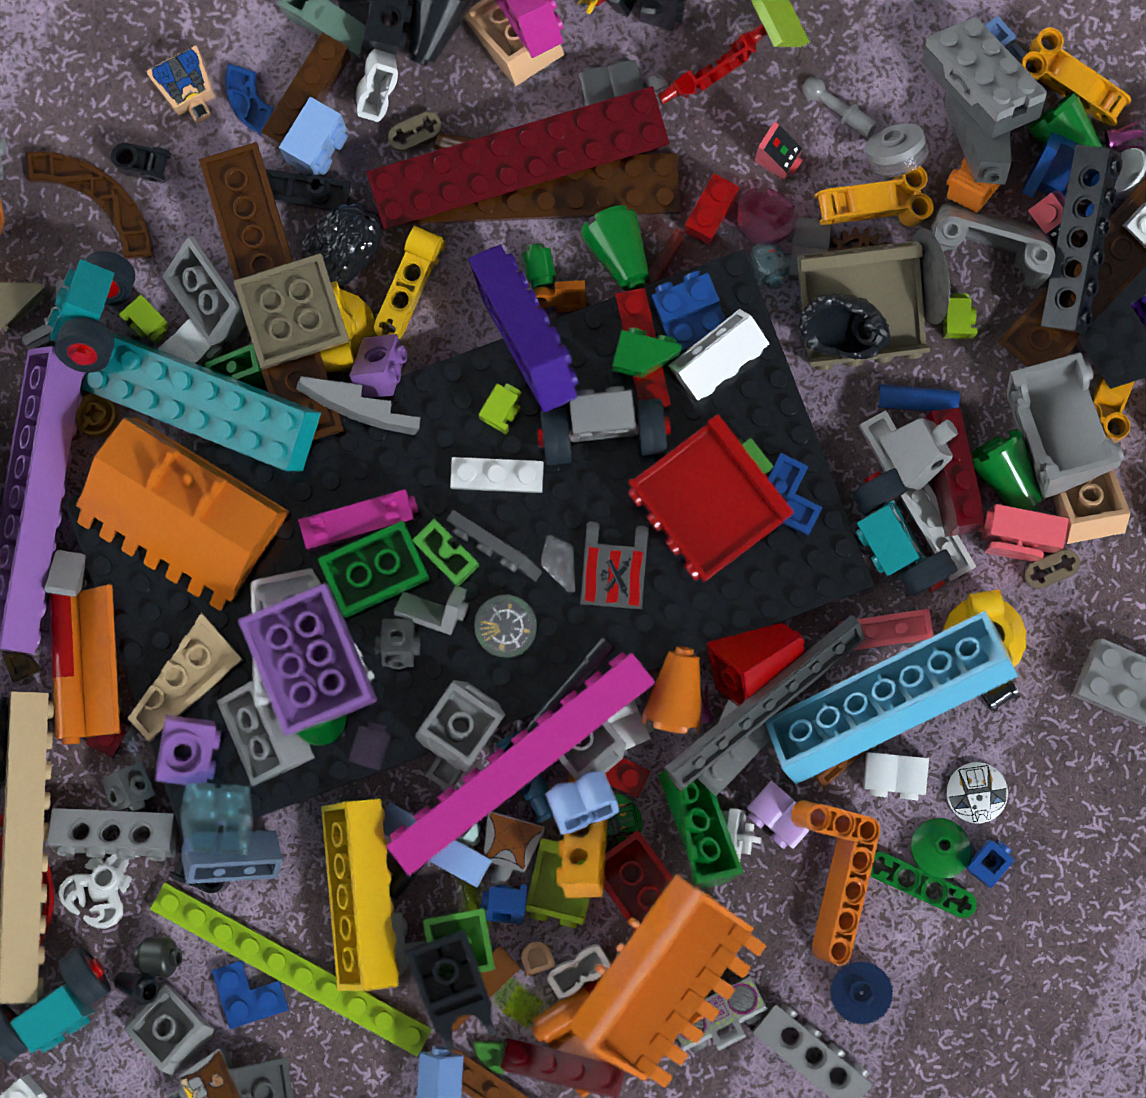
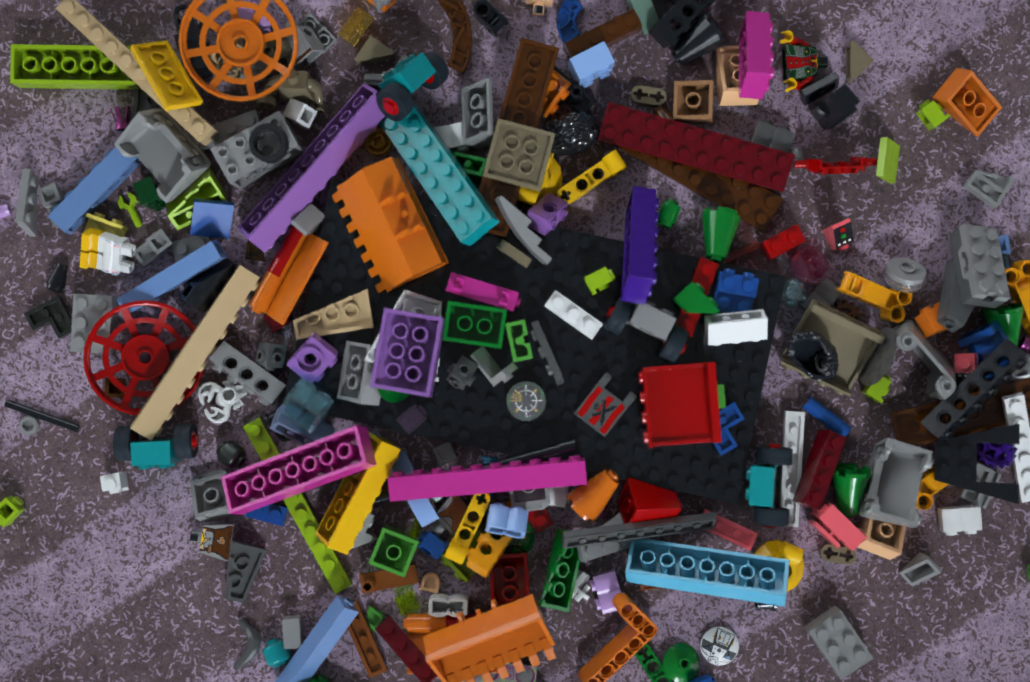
camera: 30 degrees right, 5 degrees up
(138, 987) = (210, 464): black cone -> none
(146, 319) = (437, 106): lime brick -> none
(260, 914) = (298, 470): none -> dark pink brick
(290, 201) = (557, 90): none -> orange bracket
(366, 444) = (514, 253): none -> dark tan beam
(376, 85) = (644, 57): white brick -> none
(453, 996) = (374, 579): black brick -> none
(460, 724) = (468, 438): light grey slope -> none
(479, 101) = (694, 101): none -> medium nougat slope
(539, 880) = (458, 545): none -> yellow piece
(559, 562) = (576, 384): clear piece -> none
(566, 296) = (671, 239): orange plate -> none
(815, 89) = (880, 211): light grey pin -> none
(895, 774) = (682, 609): white brick -> none
(919, 450) = (810, 448): light grey torso -> none

